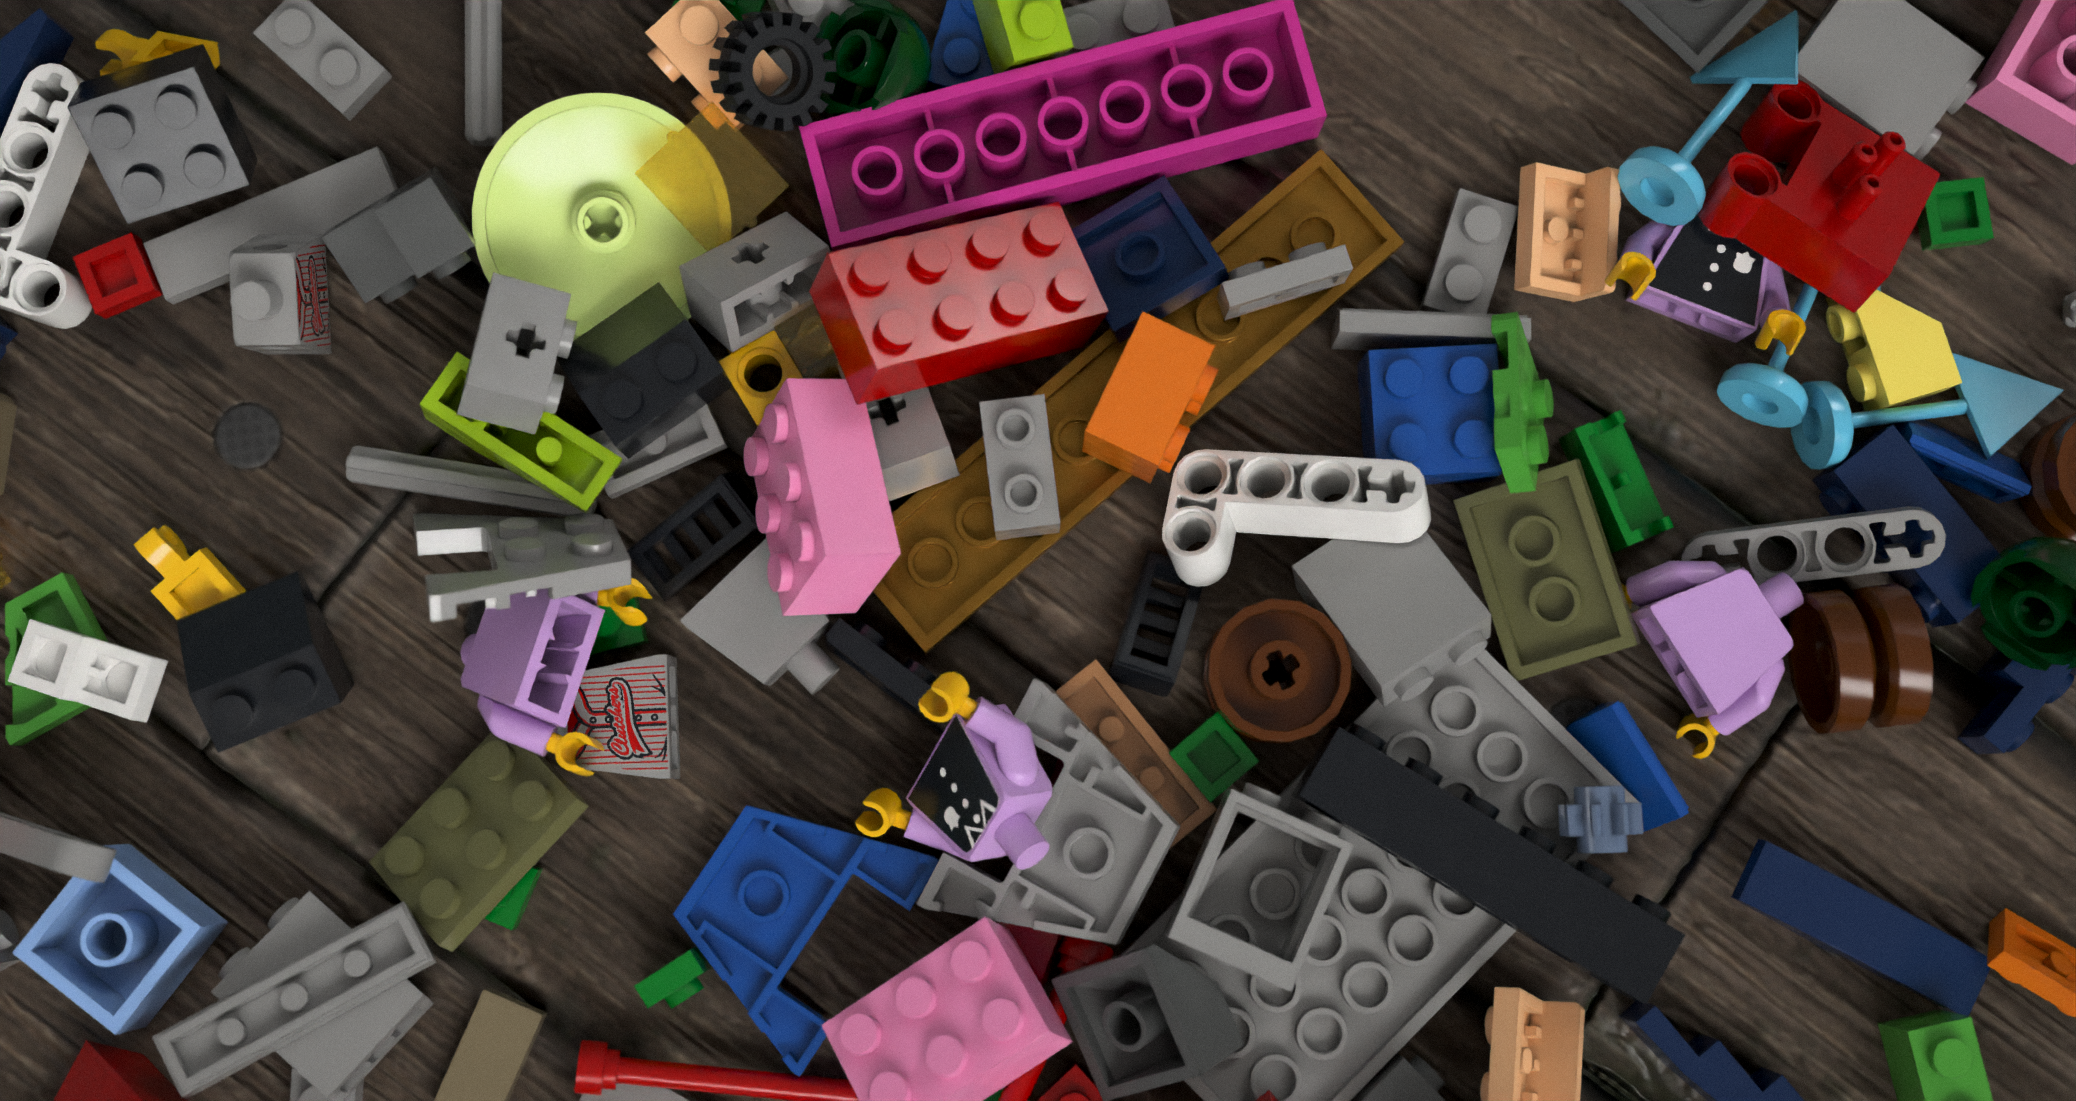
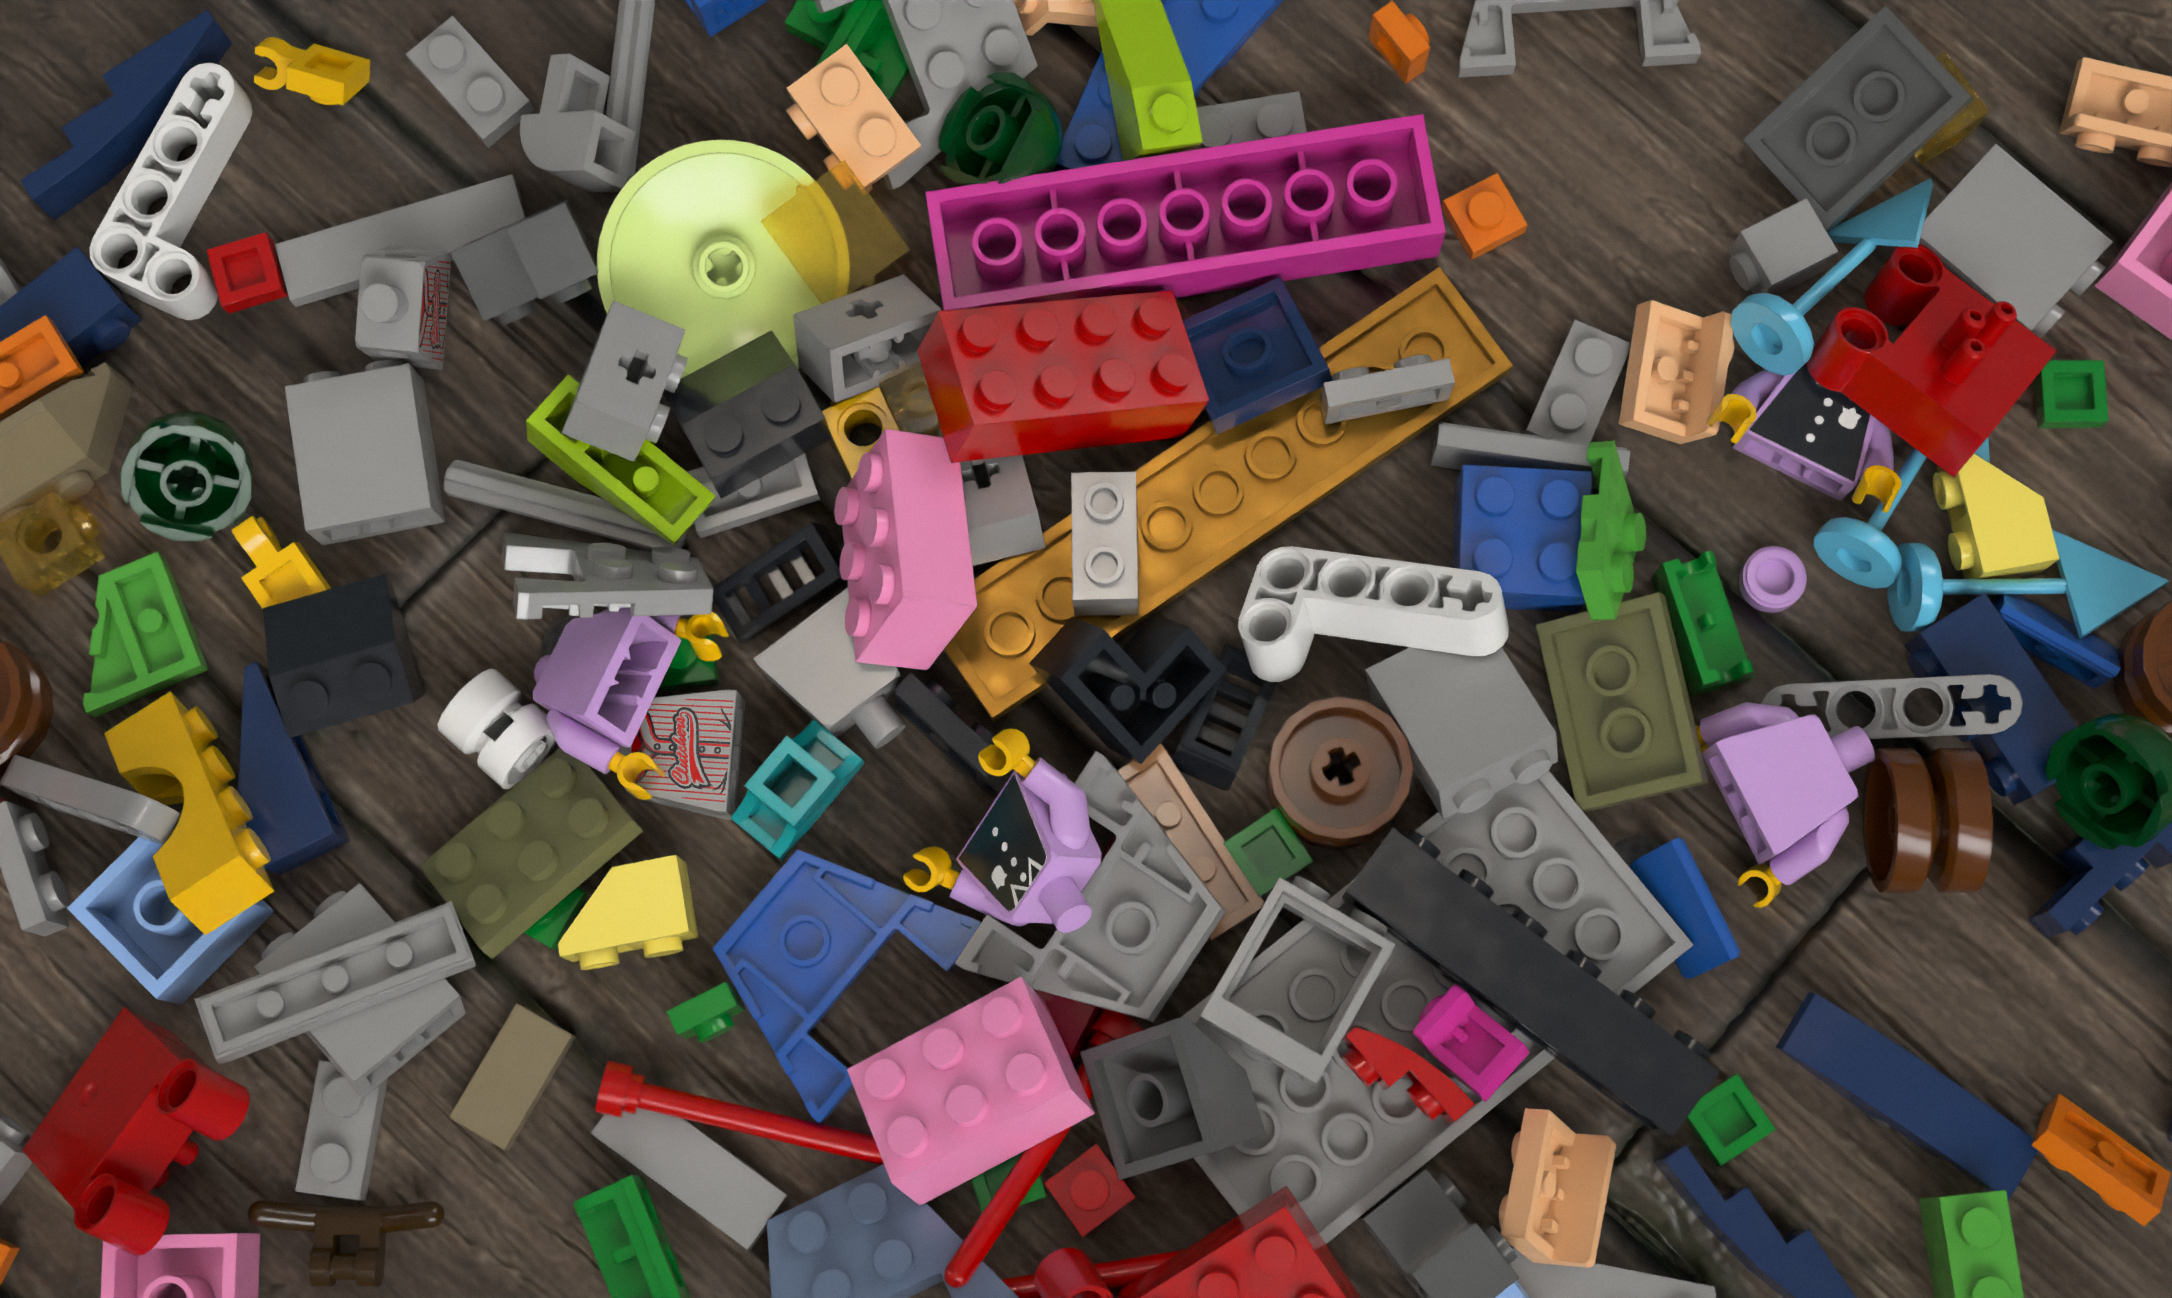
camera: 15 degrees right, 5 degrees down
(80, 494) = (187, 476): none -> dark green cylinder
(88, 671) = (172, 647): white slope -> none
(152, 891) = (211, 858): none -> yellow arch
(163, 134) = (311, 140): brick -> none
(217, 799) = (282, 782): none -> dark blue slope
(260, 448) = (364, 452): none -> light grey brick
(412, 705) = (491, 721): none -> white wheel
(431, 99) = (573, 134): none -> light grey brick
(589, 882) = (633, 909): none -> light yellow slope
(737, 744) = (795, 788): none -> teal brick
(808, 70) = (940, 144): black tyre -> none
(1060, 613) = (1129, 692): none -> black brick
(1146, 398) = (1237, 488): orange brick -> none
(1348, 956) = (1386, 1061): none -> red slope
(1359, 92) = (1484, 216): none -> orange plate
(1434, 929) = (1468, 1042): none -> dark pink bracket
(1600, 819) = (1648, 950): sand blue gear -> none
(1657, 98) = (1781, 251): none -> light grey brick
(1678, 428) = (1772, 579): none -> lavender tile
(1694, 974) = (1728, 1120): none -> green plate

